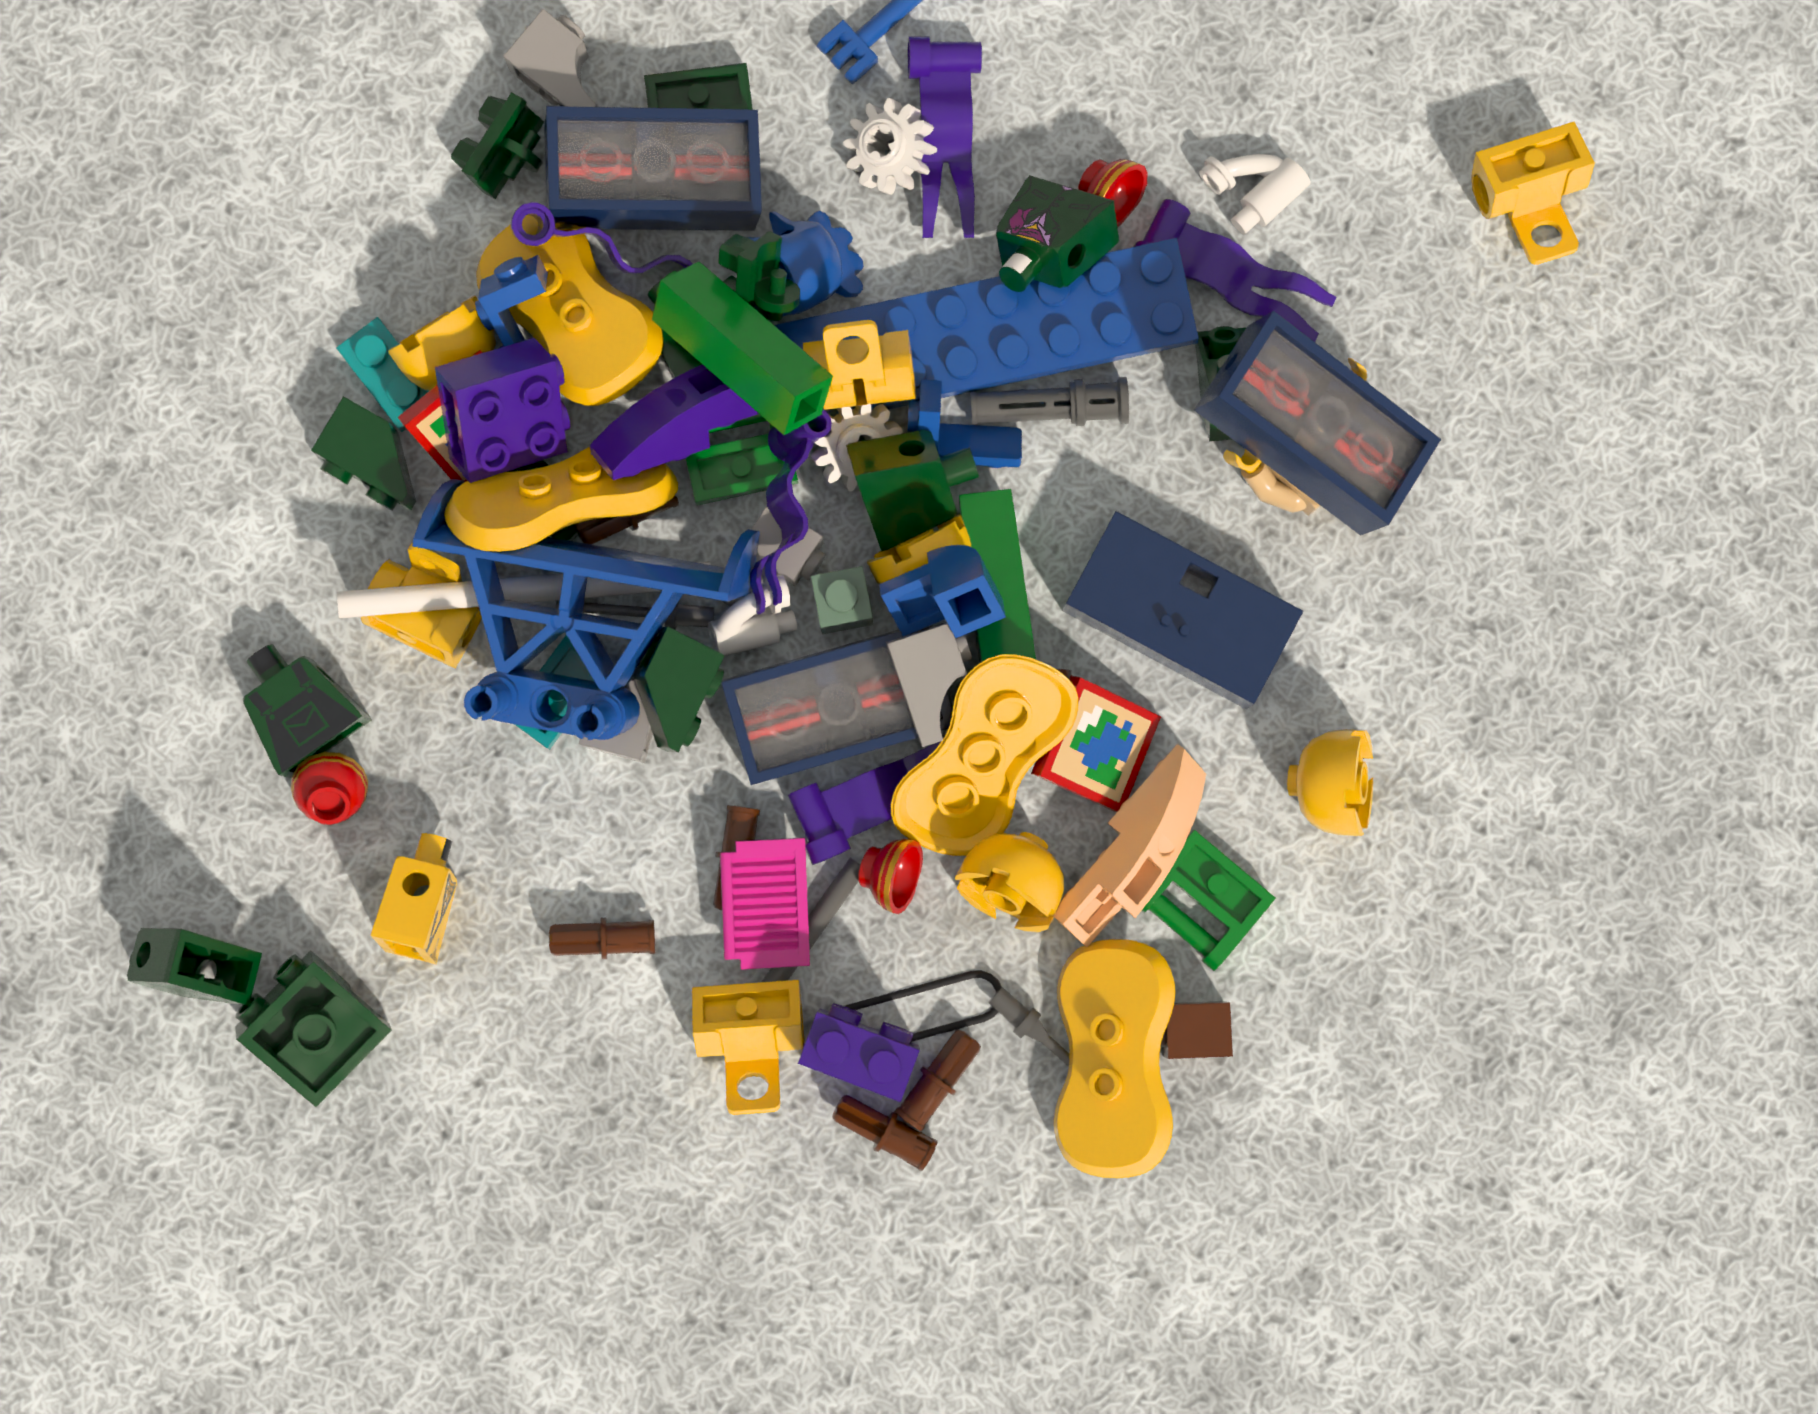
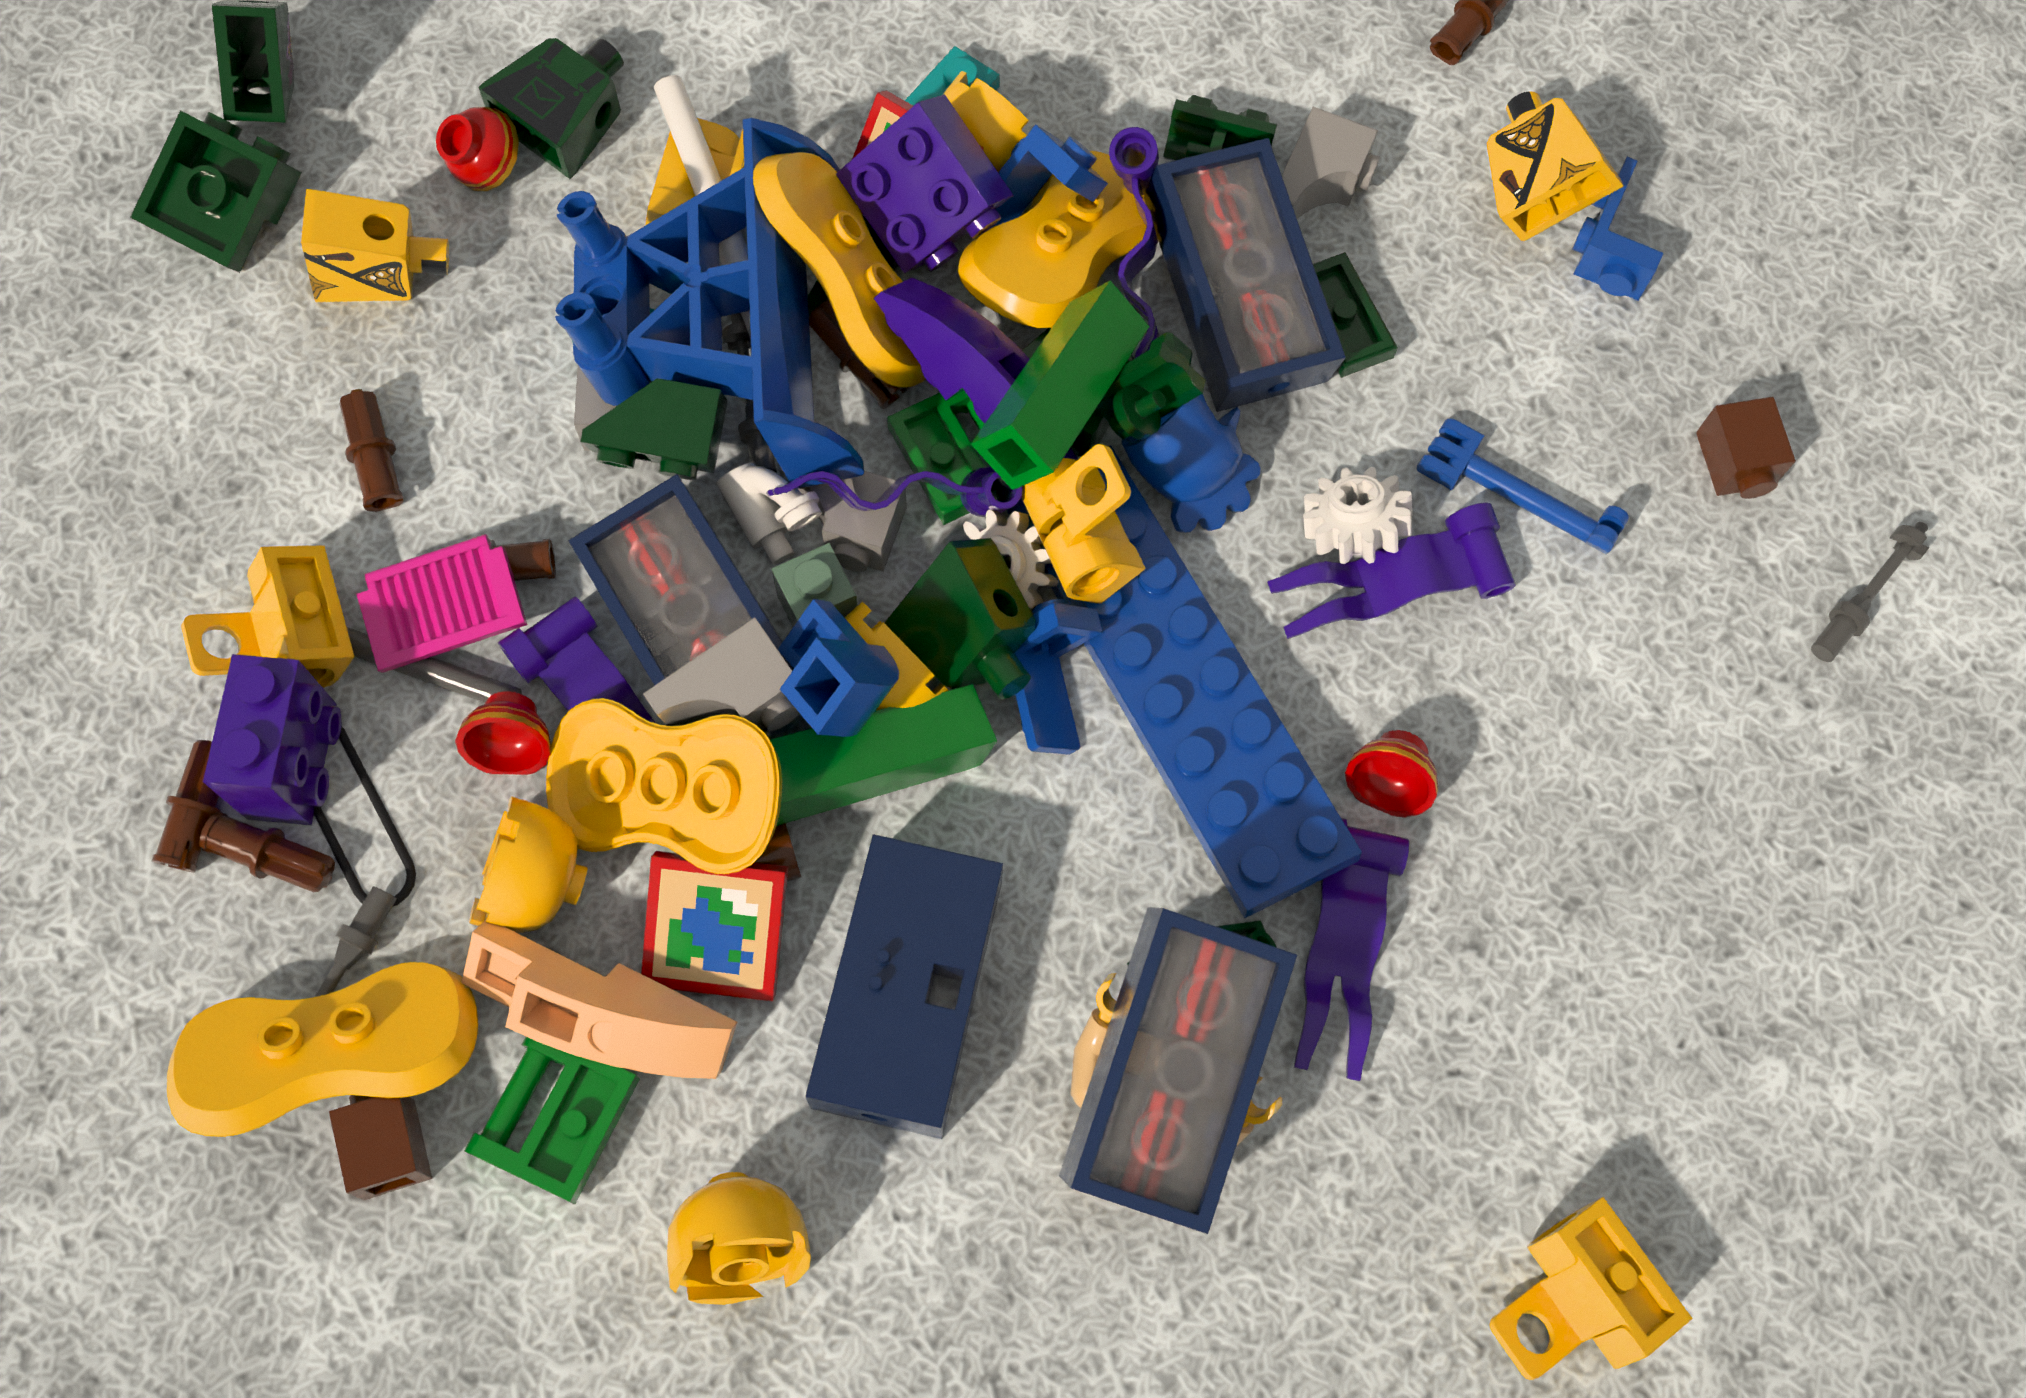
camera: 75 degrees right, 15 degrees down
(367, 449) = (845, 91): dark green slope -> none
(986, 404) = (1124, 802): dark grey pin -> none
(1053, 234) = (1313, 705): dark green torso -> none
(1278, 188) = (1469, 971): white plant -> none

